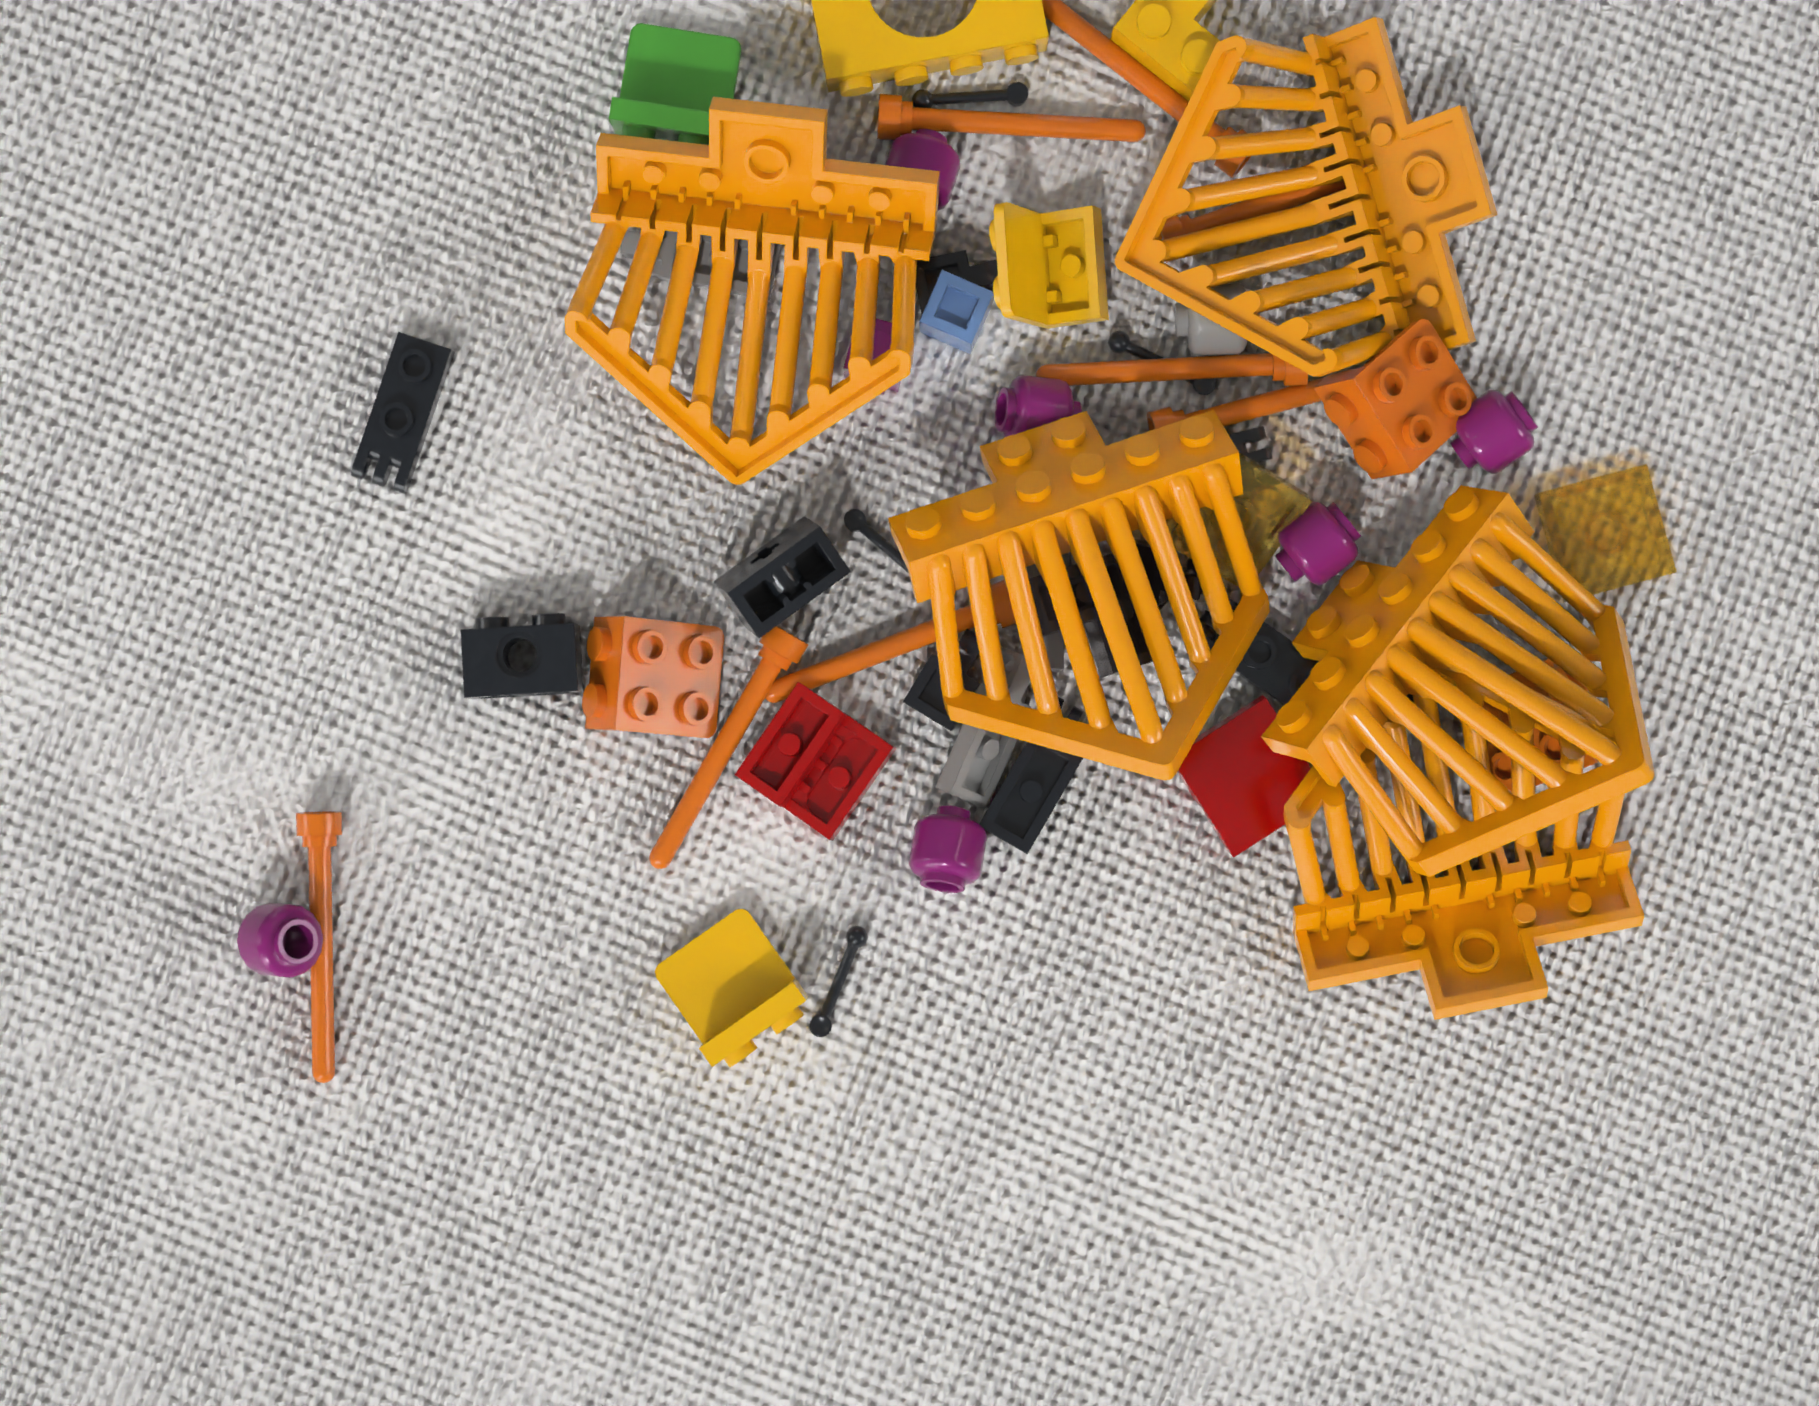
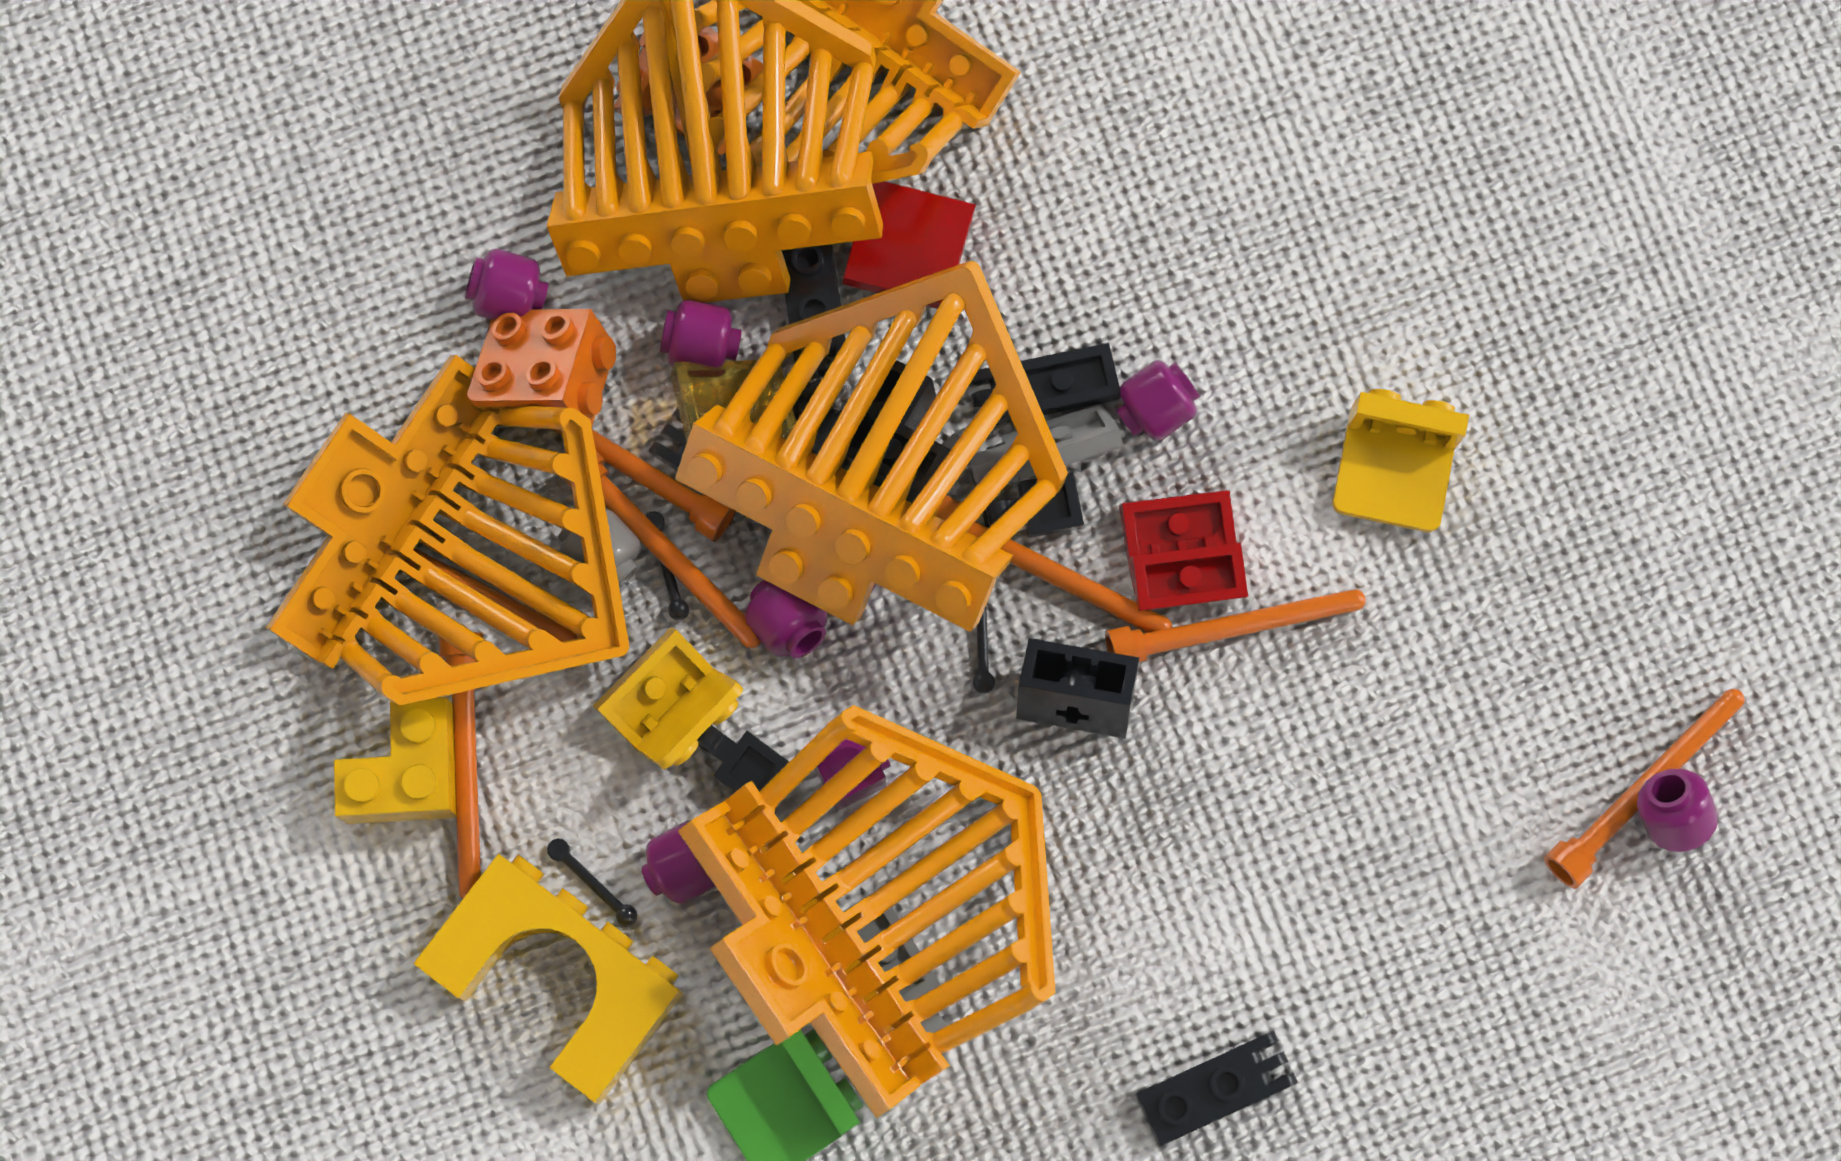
camera: 135 degrees left, 10 degrees down
(487, 664) = (1344, 834): black brick -> none
(653, 676) = (1236, 720): orange bracket -> none
(821, 1023) = (1359, 383): black hinge -> none
(900, 118) = (657, 918): orange piece -> none
(956, 311) = (765, 737): medium blue panel -> none
(1607, 530) = (505, 155): clear yellow plate -> none

